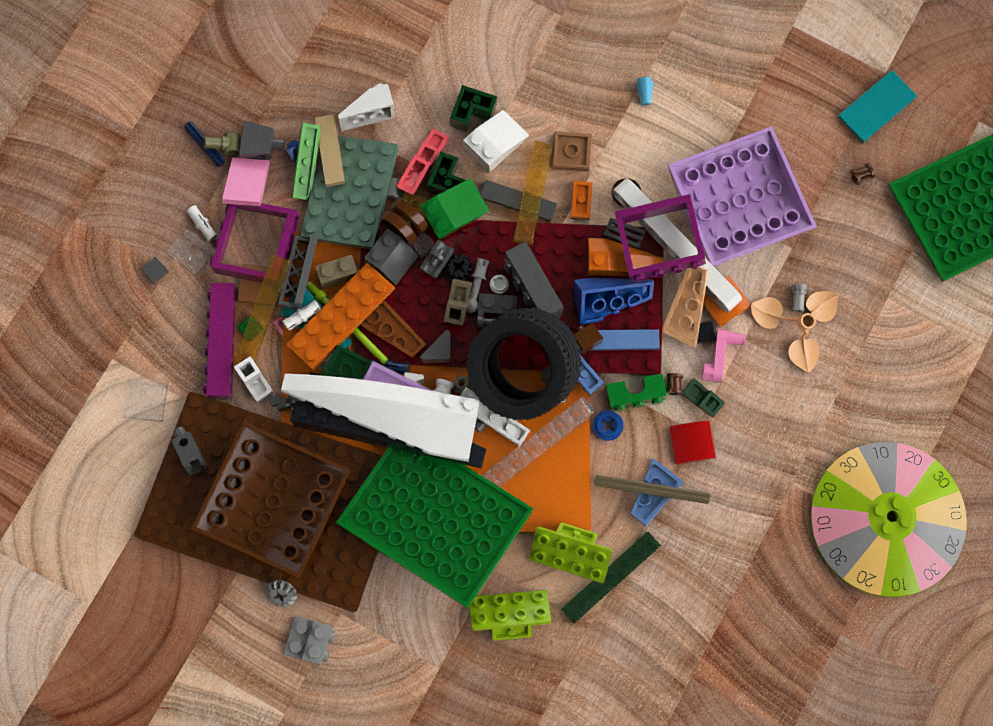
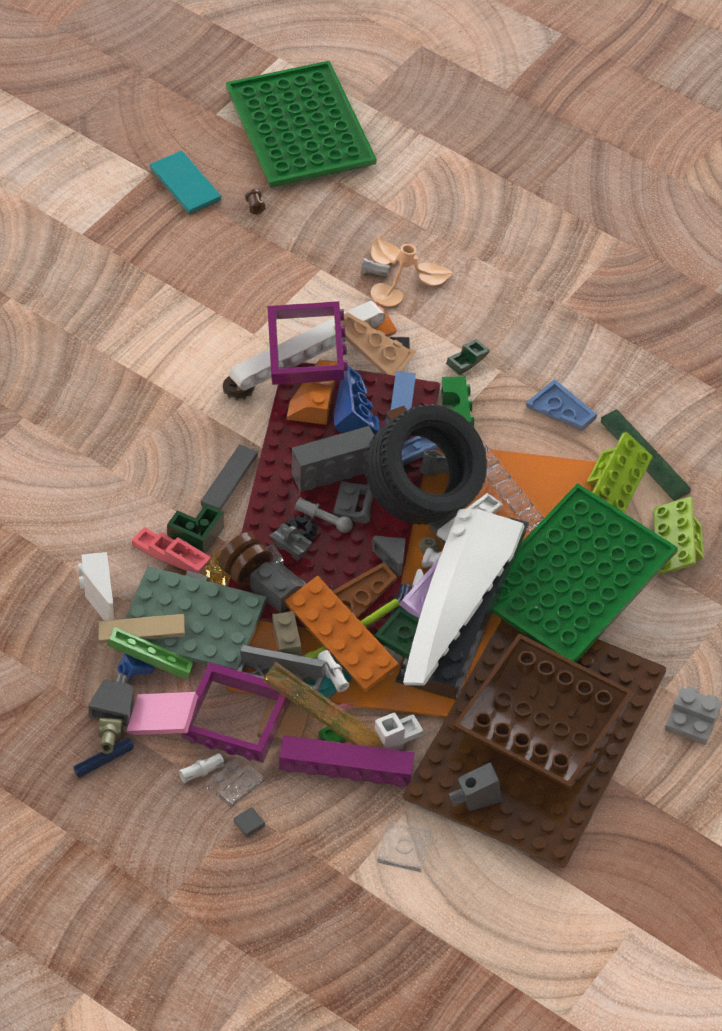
camera: 80 degrees left, 25 degrees down
(275, 400) = (426, 709): dark grey animal -> none
(283, 588) = (638, 739): light grey gear -> none
(454, 208) = (237, 514): green slope -> none
(458, 302) = (343, 531): dark tan brick -> none
(471, 103) = (115, 499): dark green brick -> none
(494, 140) = (159, 489): white slope -> none
(499, 284) = (325, 495): white plate -> none
(533, 192) = (225, 459): clear yellow tile -> none
(571, 151) = (182, 427): medium nougat tile -> none
(581, 200) = (240, 423): orange plate -> none
(607, 416) = (492, 429): blue gear -> none
(641, 232) = (277, 398): dark grey tile -> none
(644, 88) = (127, 355): medium azure cone -> none
(652, 489) = (560, 403): dark tan axle -> none
(674, 384) = (450, 372): reddish brown bush -> none
(692, 442) = (513, 370): red slope -> none
(714, 371) = (438, 339): bright pink beam -> none
(742, 196) = (259, 275): lavender slope -> none
(853, 524) = (615, 262): dish -> none

